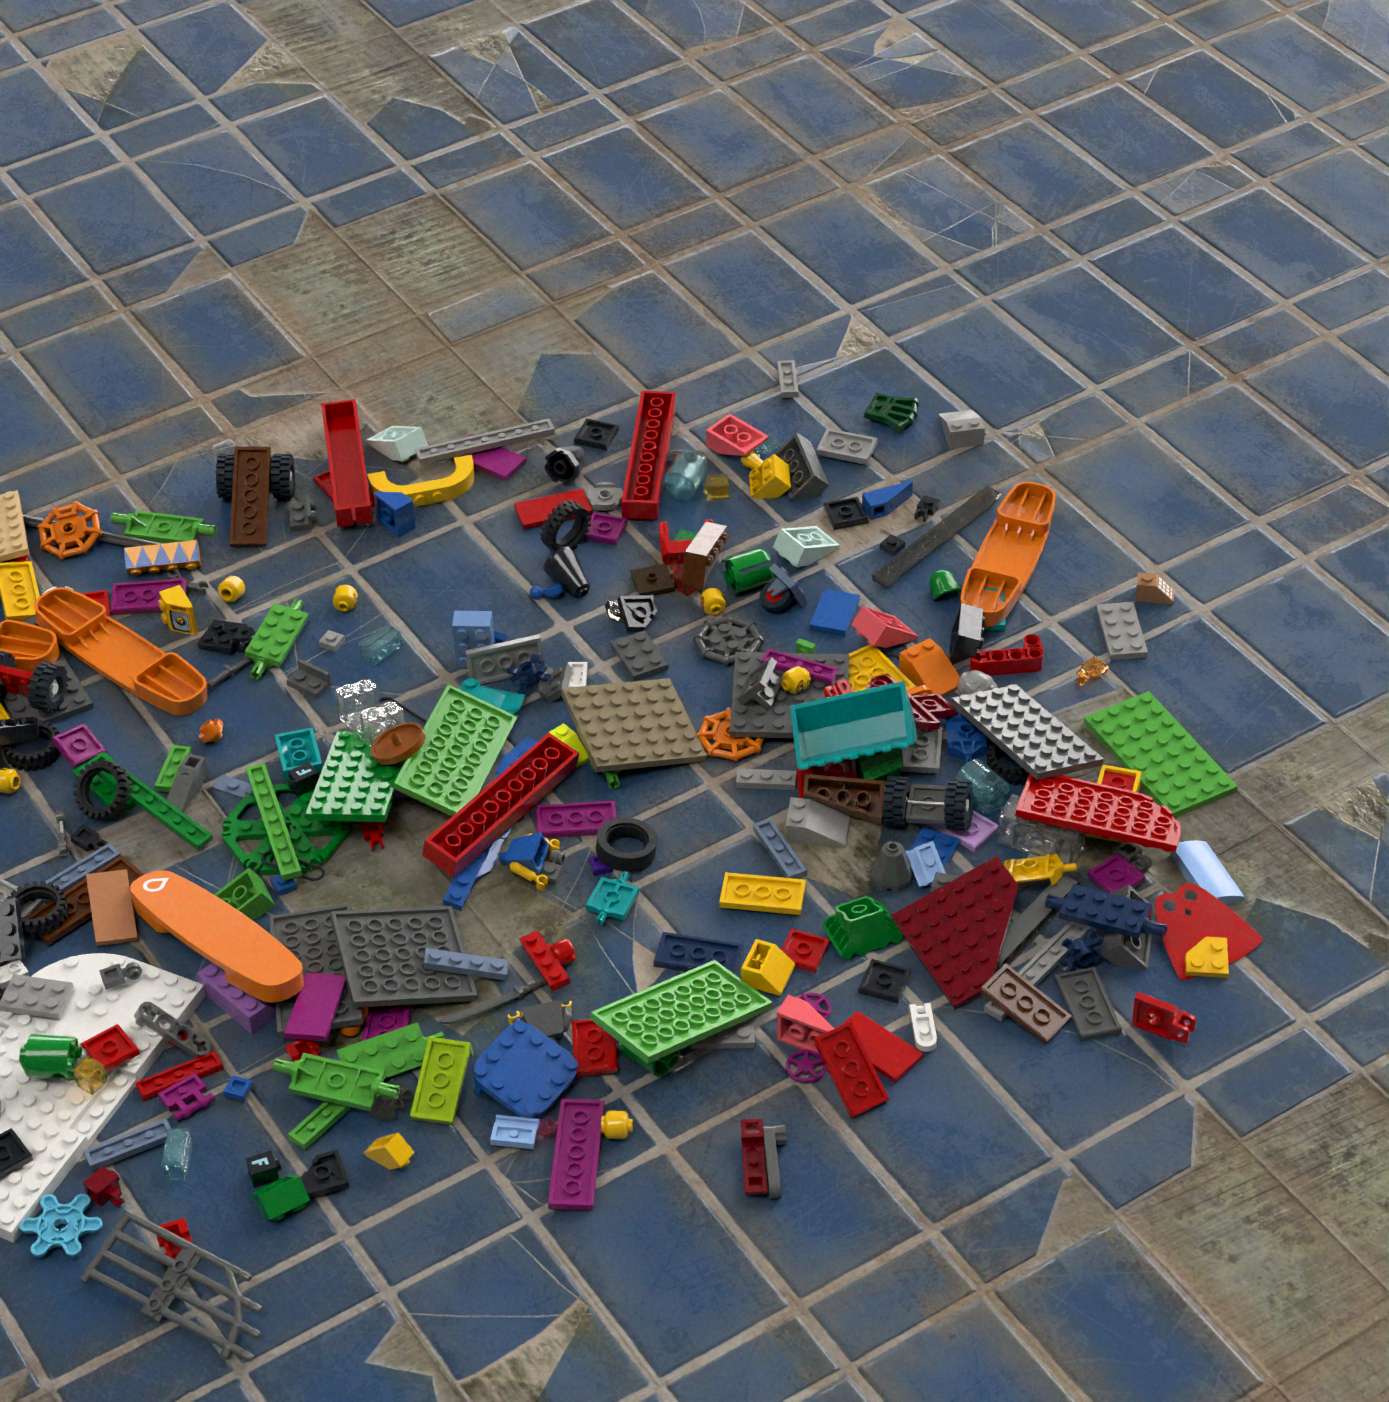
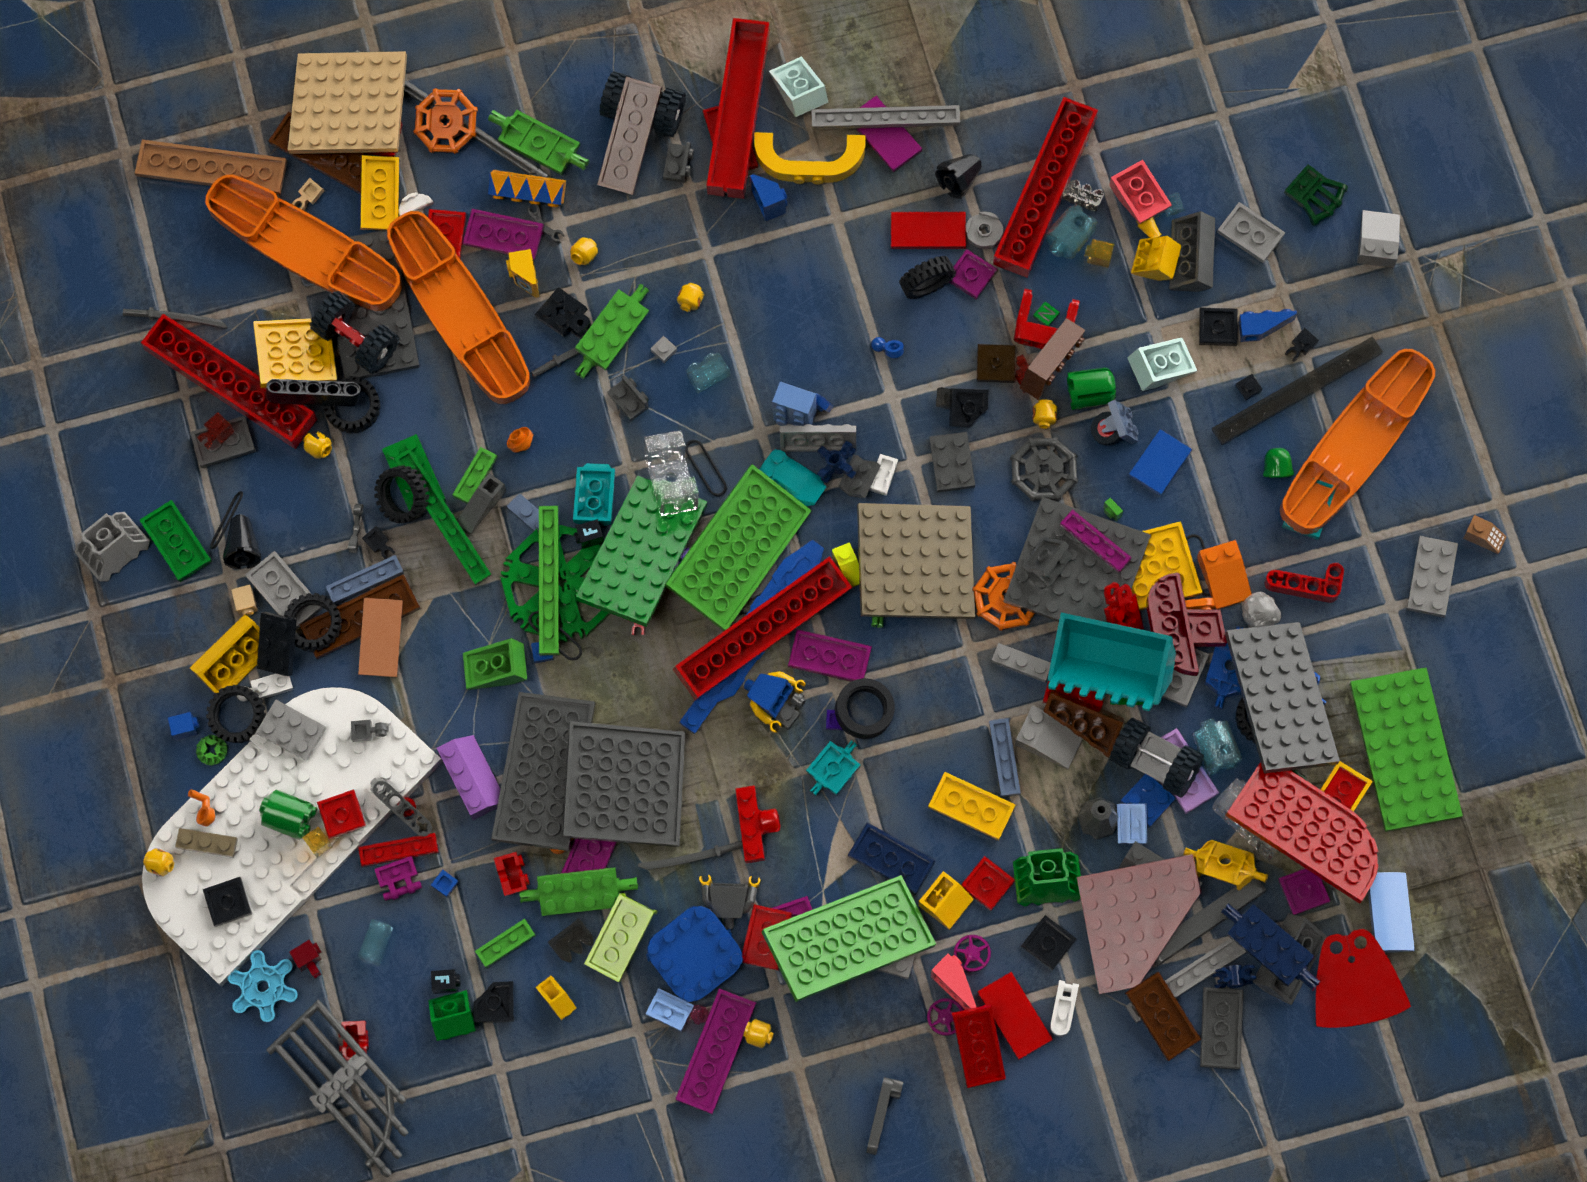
camera: 20 degrees right, 30 degrees up
(78, 745) = (393, 421): magenta tile -> none
(127, 1145) = (338, 916): sand blue plate -> none
(219, 933) = (464, 710): orange piece -> none
(316, 1007) = (531, 823): magenta tile -> none
(336, 1081) = (528, 913): bright green plate -> none
(398, 743) = (684, 529): dark orange piece -> none
(465, 964) = (677, 808): sand blue plate -> none
(567, 571) = (915, 335): black cone -> none
(596, 434) = (1003, 133): black tile -> none
(753, 1156) = (865, 1107): dark red slope -> none
(788, 379) = (1224, 111): light grey plate -> none
(796, 680) = (1084, 561): yellow head -> none
(881, 628) = (1197, 508): coral slope -> none
(966, 633) = (1272, 546): black slope -> none
(1091, 668) = (1382, 621): clear orange plate -> none
(1168, 1021) = (1278, 1077): red plate -> none
(1208, 958) = (1350, 1014): yellow plate -> none

